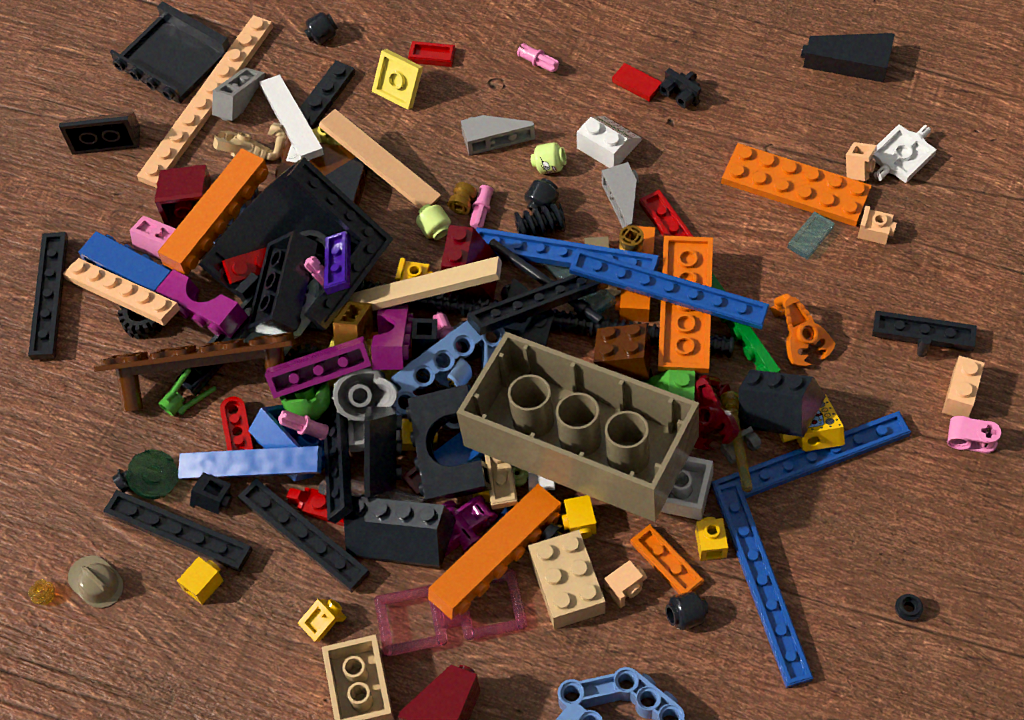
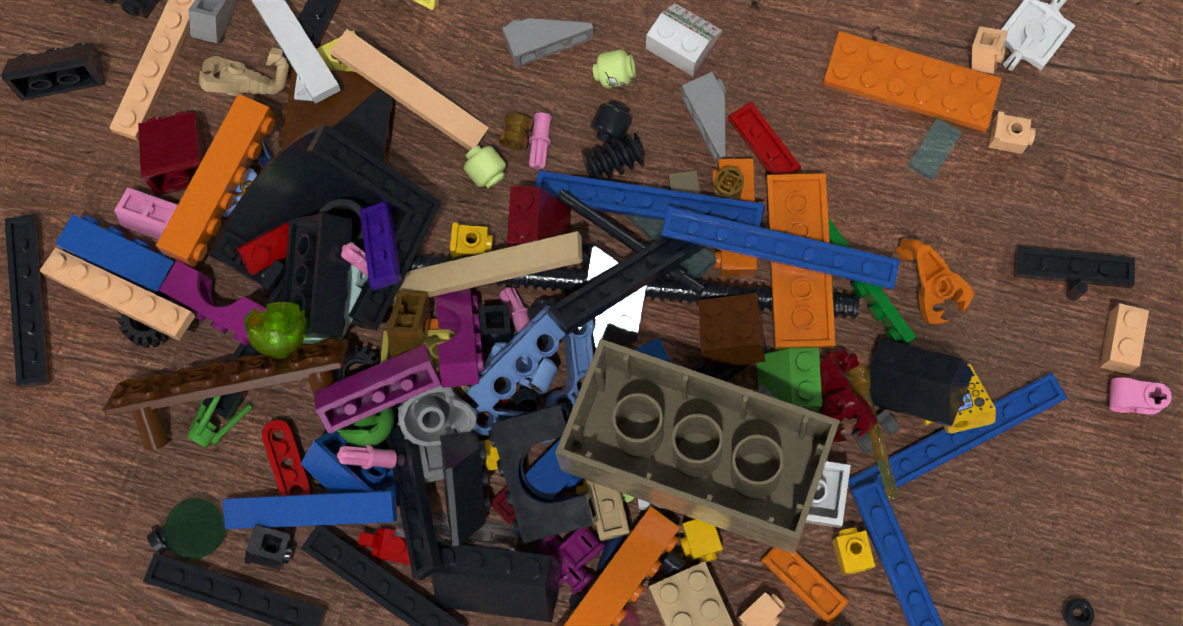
camera: 10 degrees left, 15 degrees up
(243, 317) = (277, 329): none -> clear neon green cylinder

